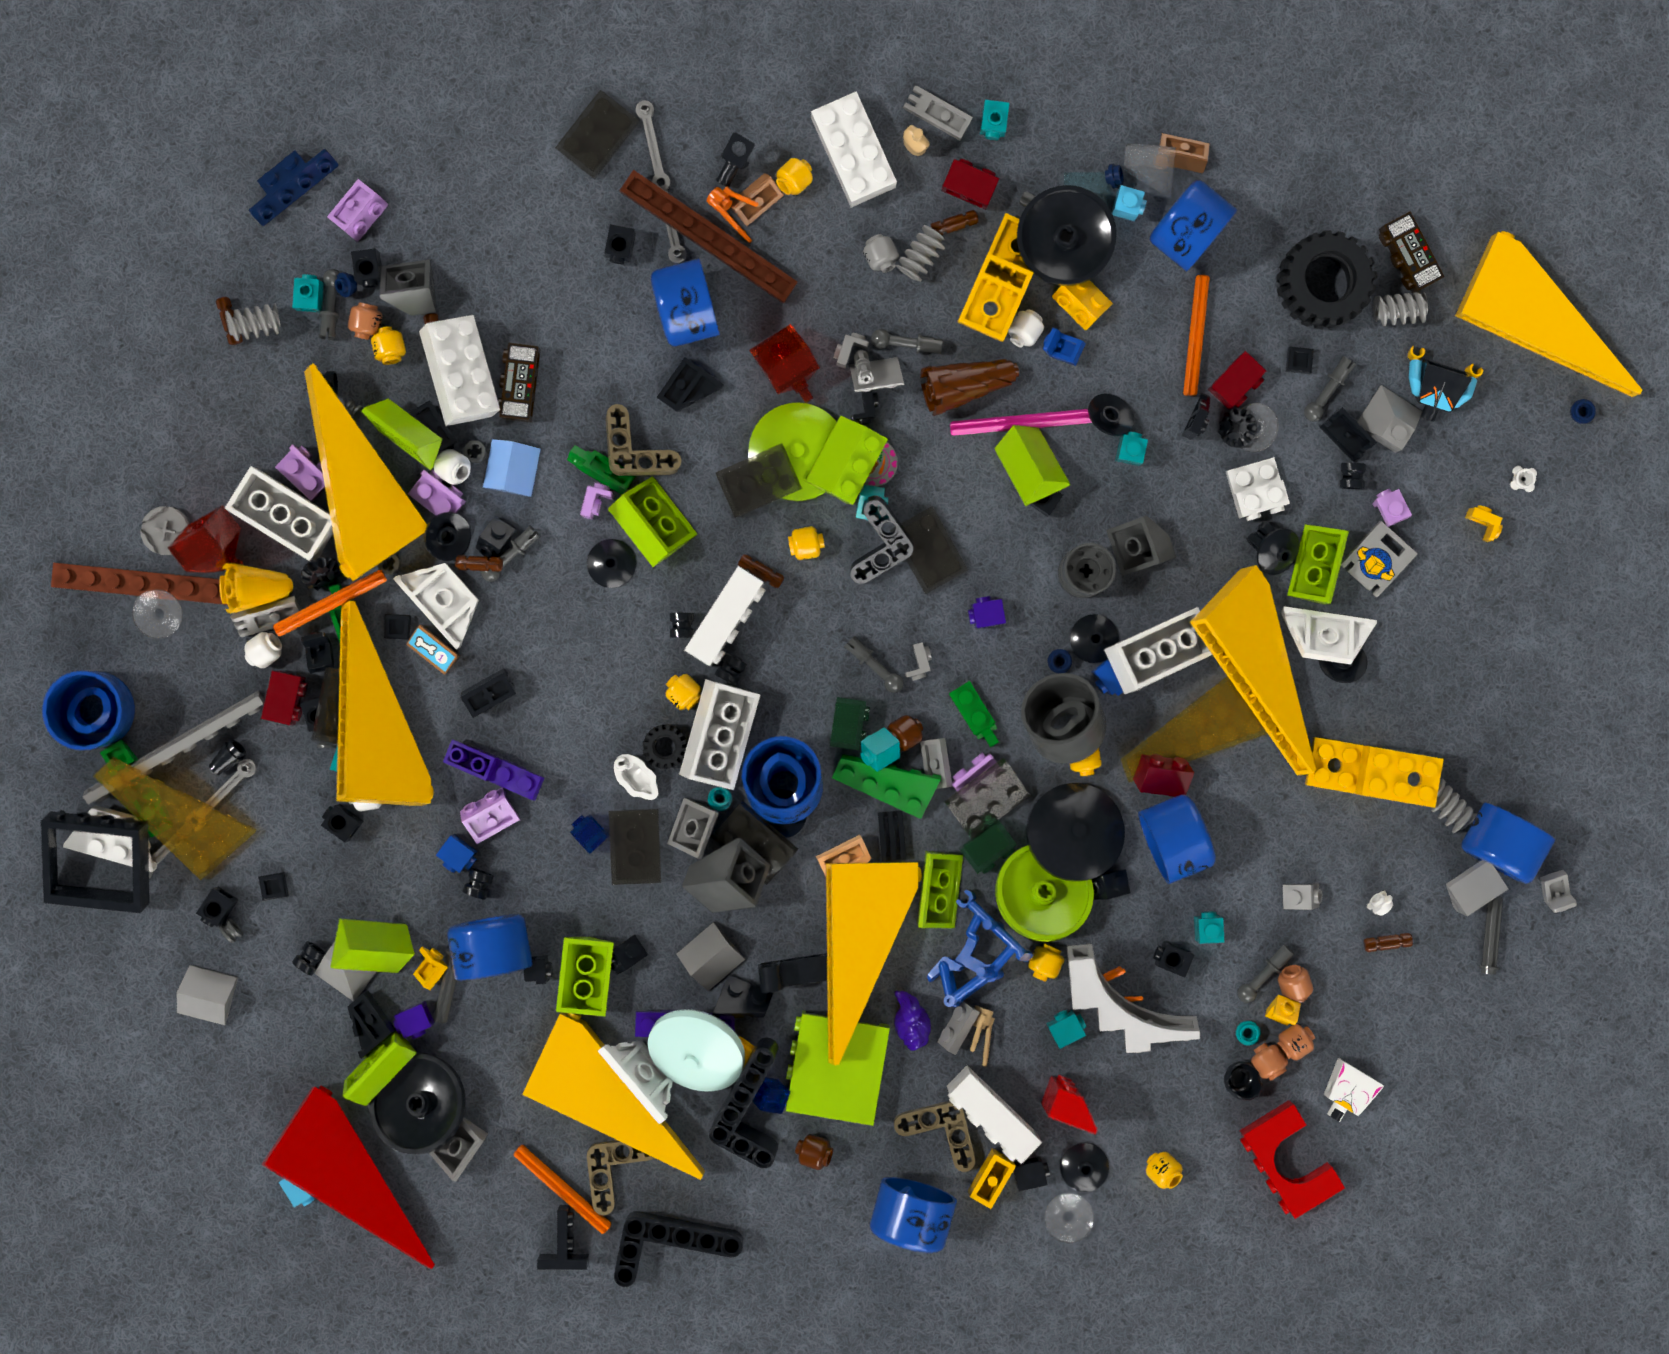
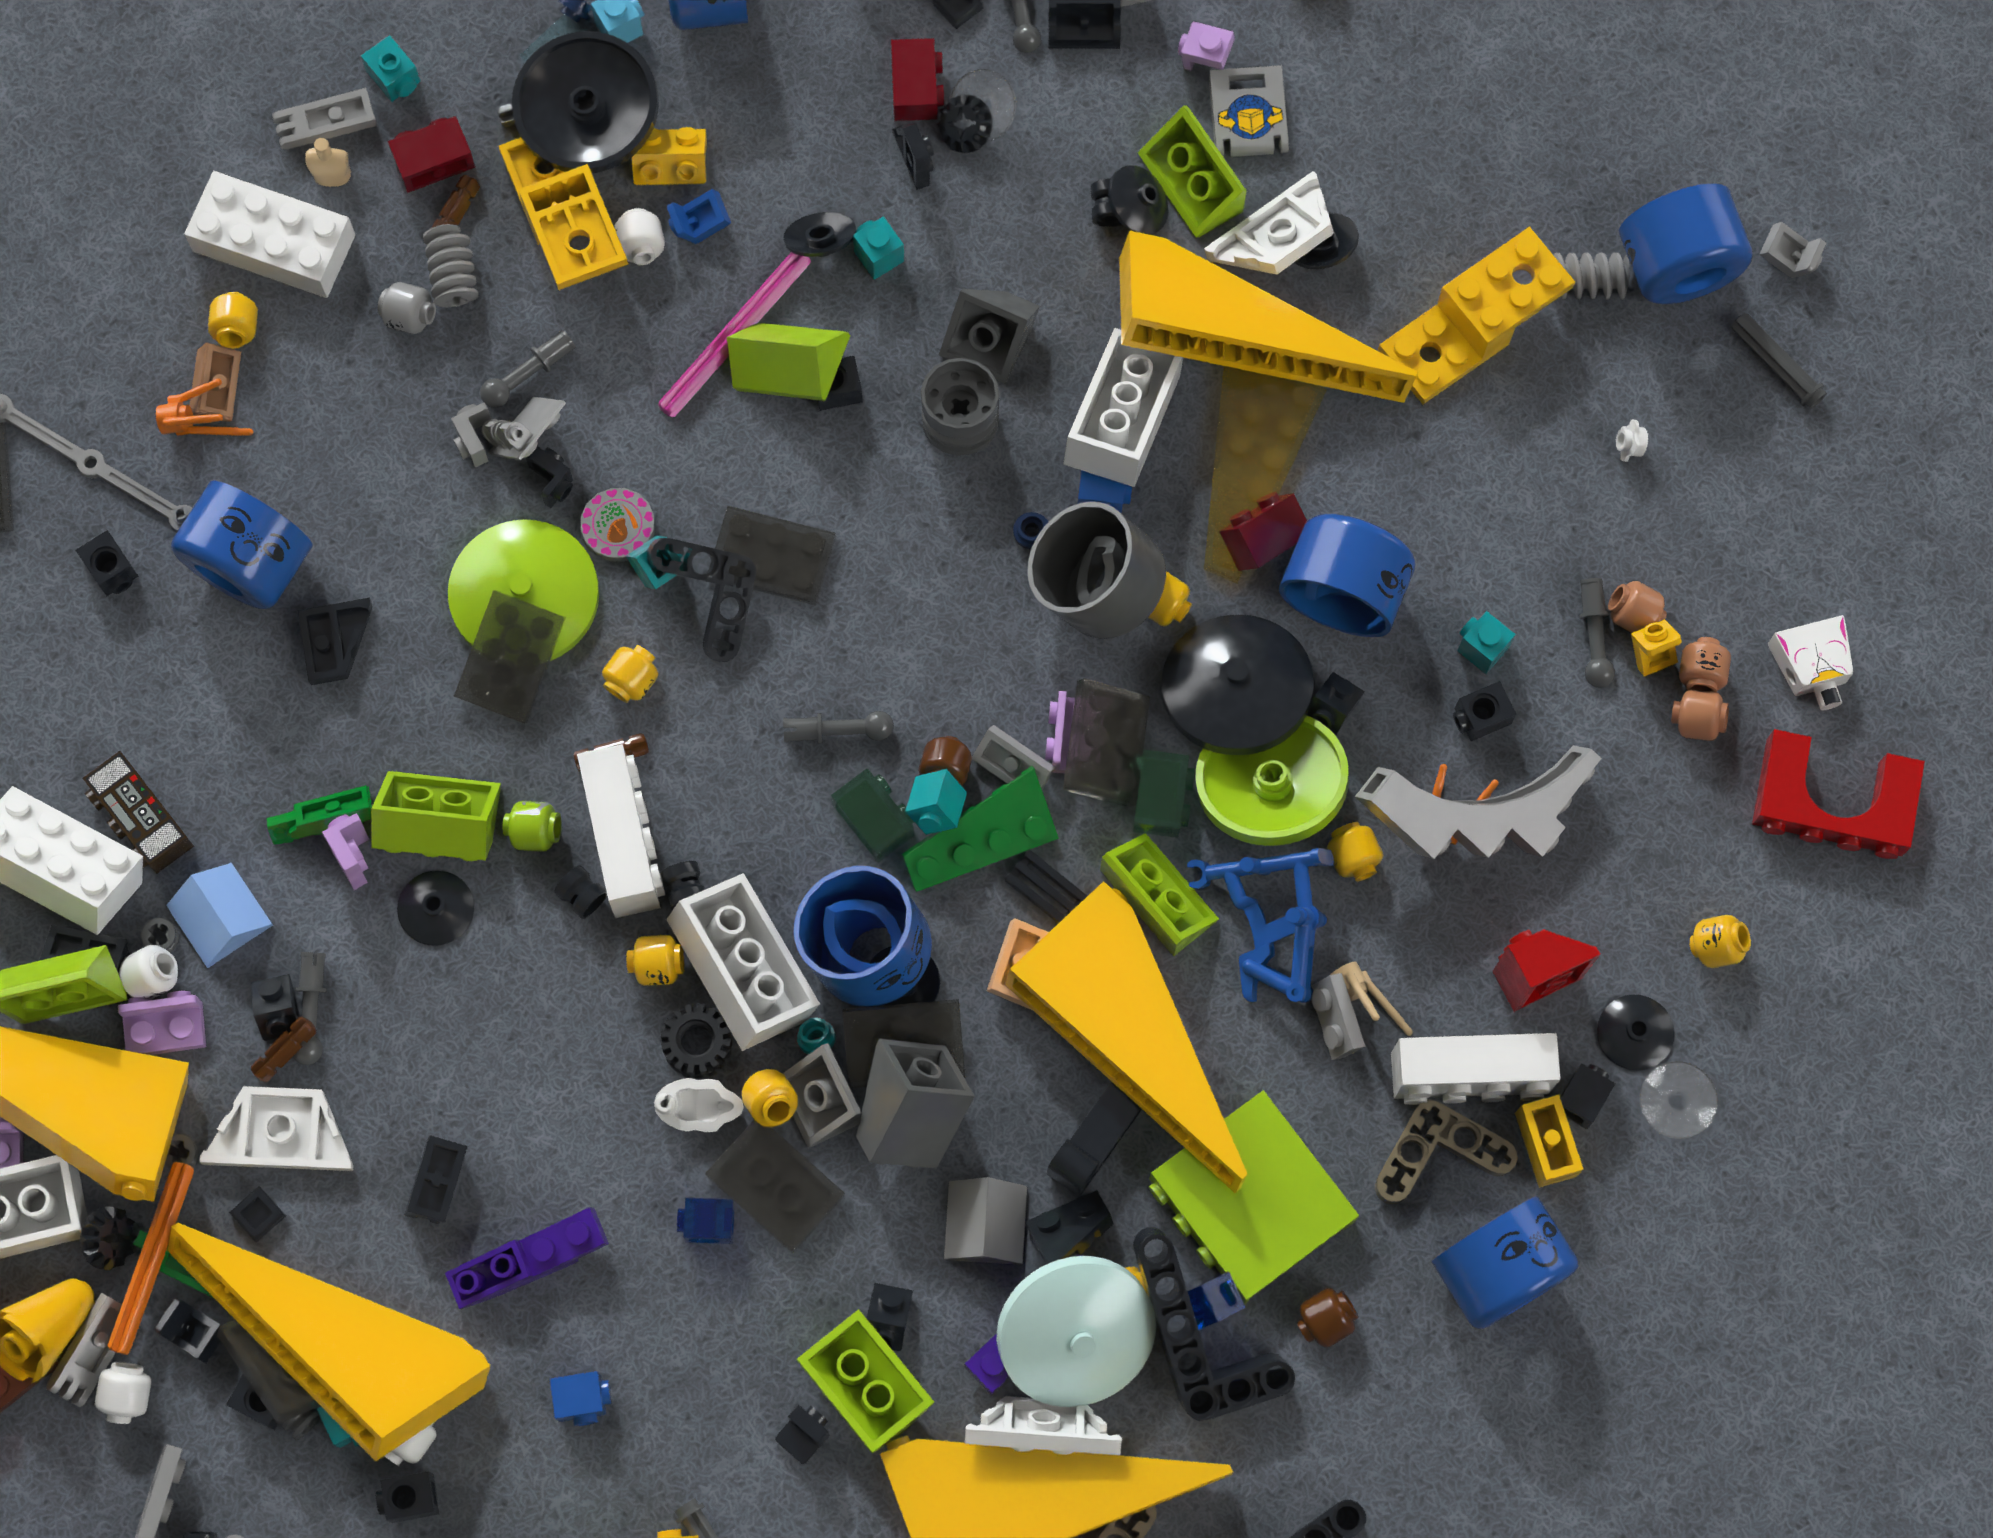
camera: 45 degrees left, 15 degrees down
(284, 698) = (201, 1421): dark red brick -> none
(432, 649) = (323, 1197): slope -> none
(456, 540) = (226, 1044): black dish -> none
(477, 883) = (637, 1406): black wheel -> none
(488, 815) = (573, 1317): lavender bracket -> none
(489, 946) = (720, 1453): blue piece -> none
(625, 451) = (334, 770): dark tan beam -> none
(670, 807) = (769, 1098): none -> yellow head
(690, 571) = (532, 826): none -> lime head
(708, 236) = (198, 465): copper plate -> none
(733, 161) = (149, 361): black bracket -> none
(786, 362) = (416, 505): clear red piece -> none
(846, 460) = (585, 541): lime slope -> none
(911, 1021) = (1280, 1064): dark purple hair -> none
(922, 657) = (881, 668): light grey bracket -> none
(961, 382) = (628, 349): reddish brown cone -> none
(974, 713) = (999, 672): green hinge -> none
(986, 612) = (902, 554): dark purple brick -> none
(1066, 1028) = (1452, 899): teal brick -> none
(1081, 637) = (1040, 490): black dish -> none
(1196, 335) = (826, 79): orange axle -> none
(1243, 1081) = (1696, 763): black hair -> none
(1253, 1038) = (1646, 700): teal plate -> none
(1257, 489) = (1051, 164): white plate -> none
(1302, 896) = (1543, 515): light grey bracket -> none
(1352, 476) = (1133, 57): black wheel -> none
(1388, 942) = (1683, 473): reddish brown axle -> none
(1475, 888) = (1705, 323): light grey slope -> none

